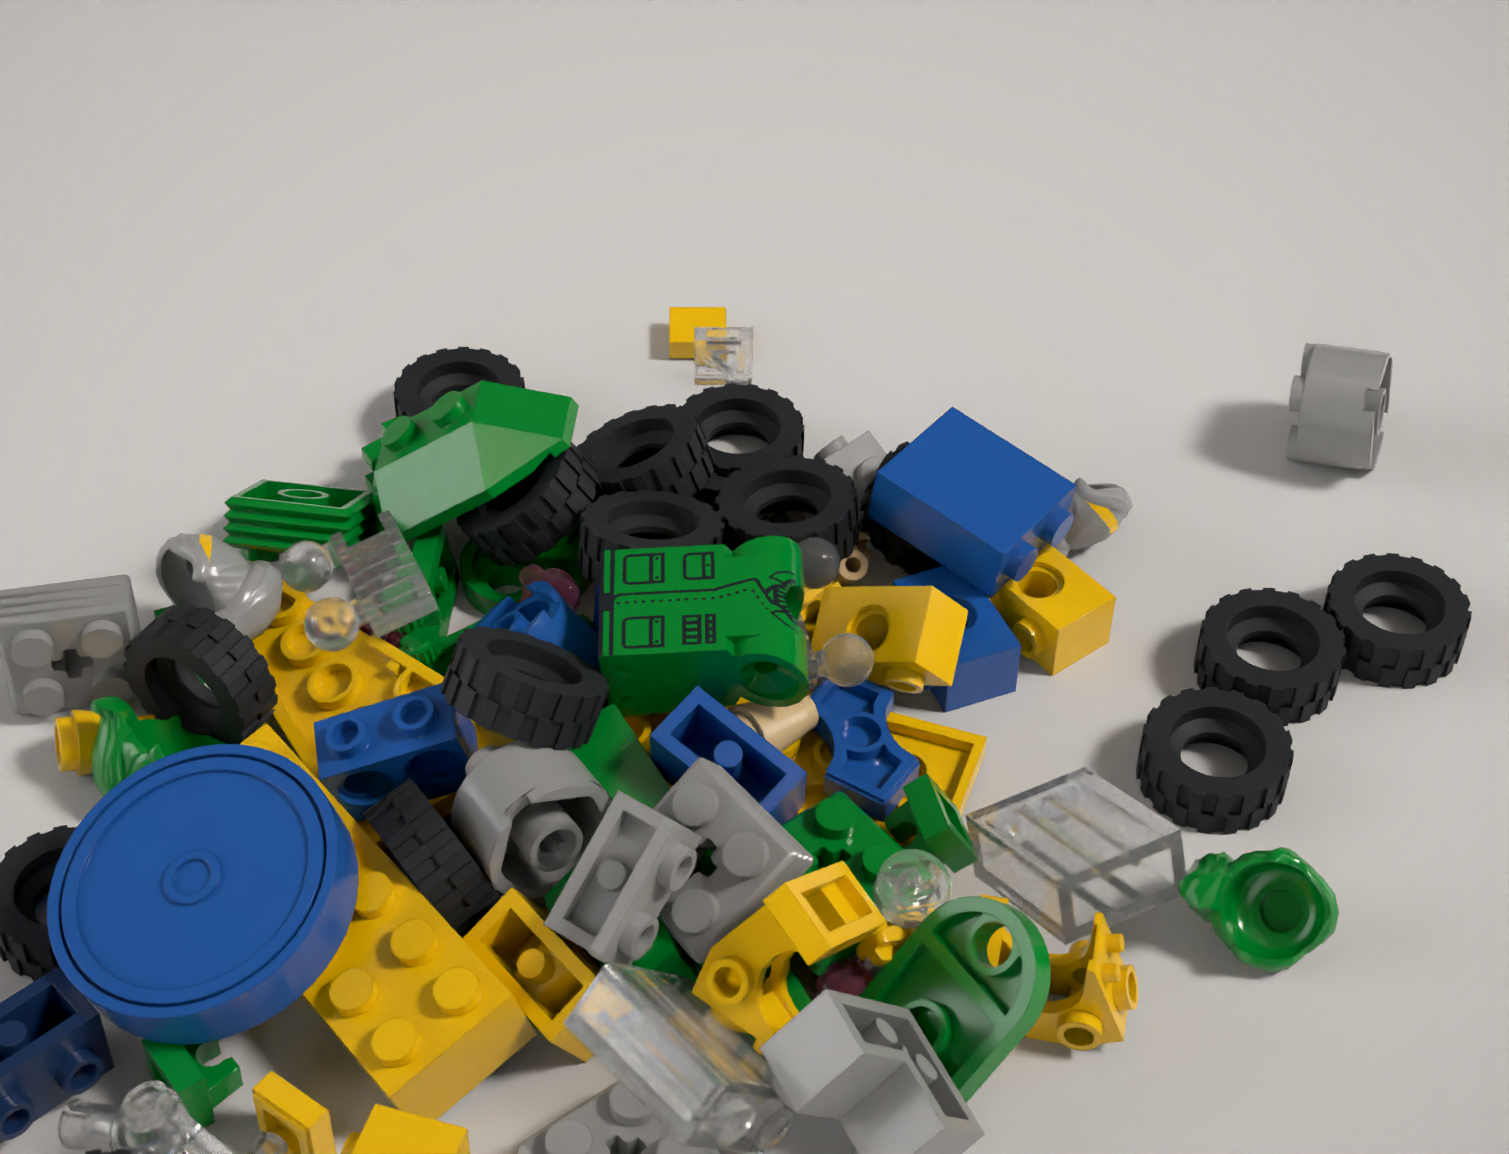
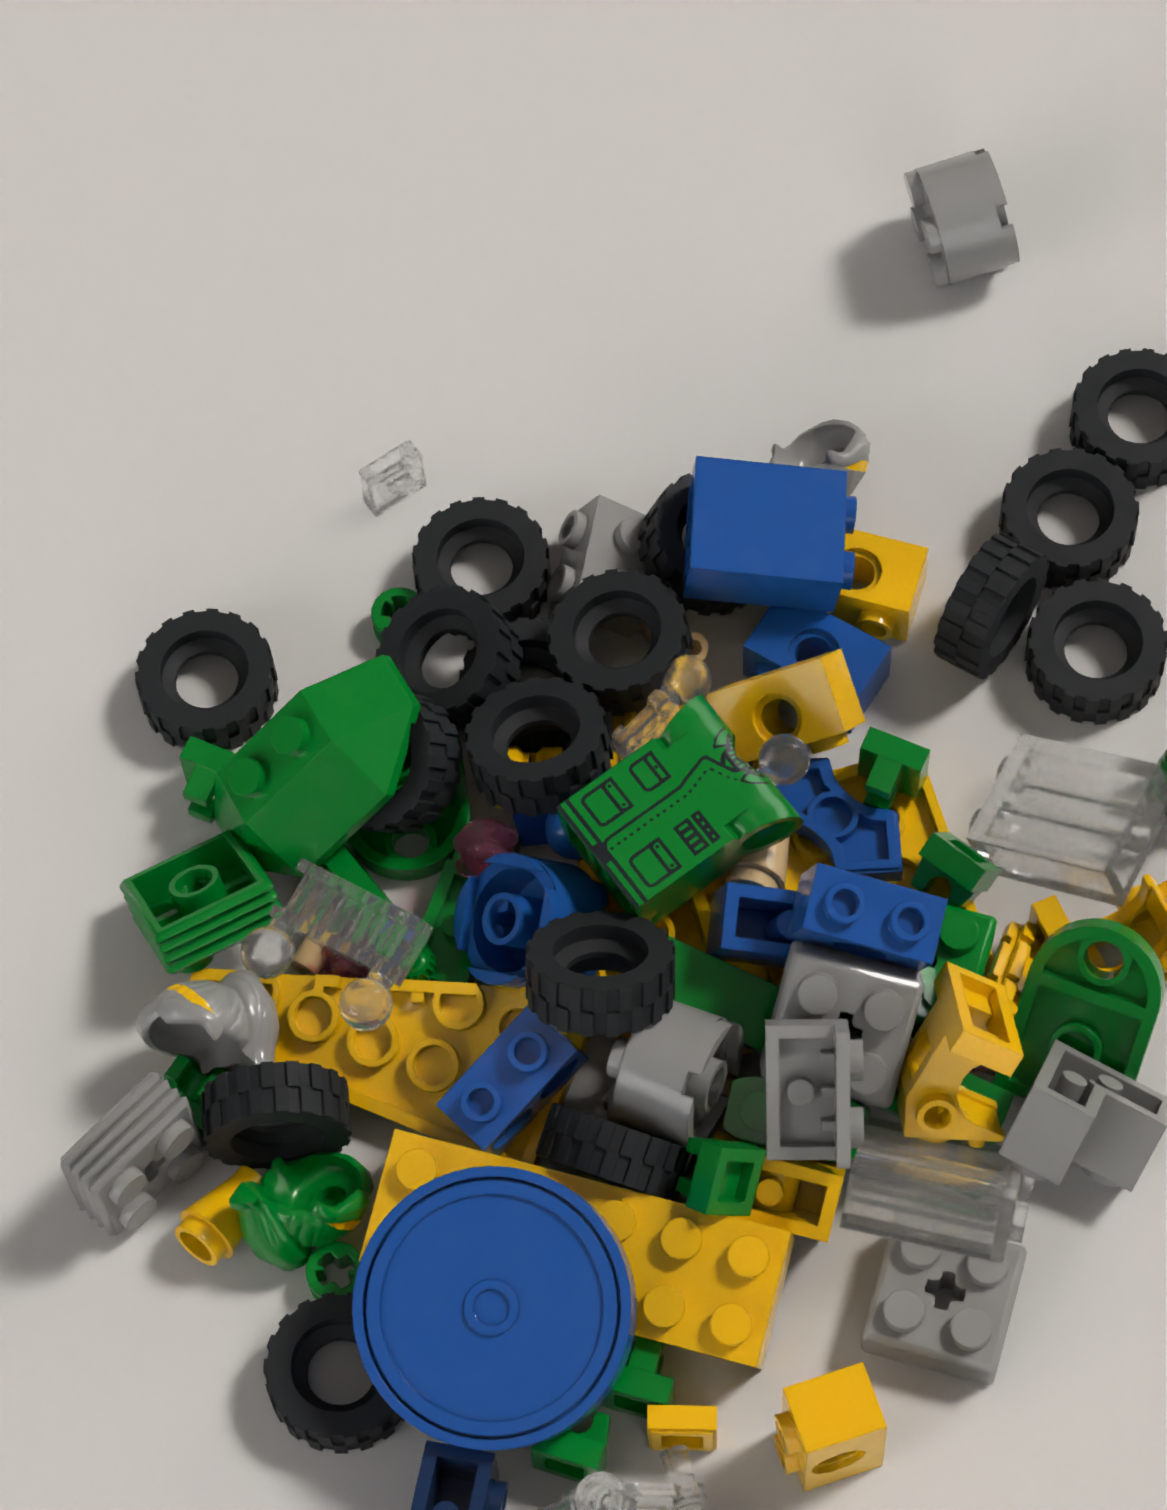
camera: 30 degrees left, 20 degrees up
(295, 1054) = (641, 1381): none -> green tile
(492, 913) = (723, 1176): none -> green tile
(682, 324) = (335, 458): yellow tile -> none
(792, 772) = (866, 917): none -> blue brick
(911, 887) = (1003, 946): clear tile -> none
(940, 724) = (891, 768): none -> green tile
(1117, 632) = (991, 605): none -> black tyre

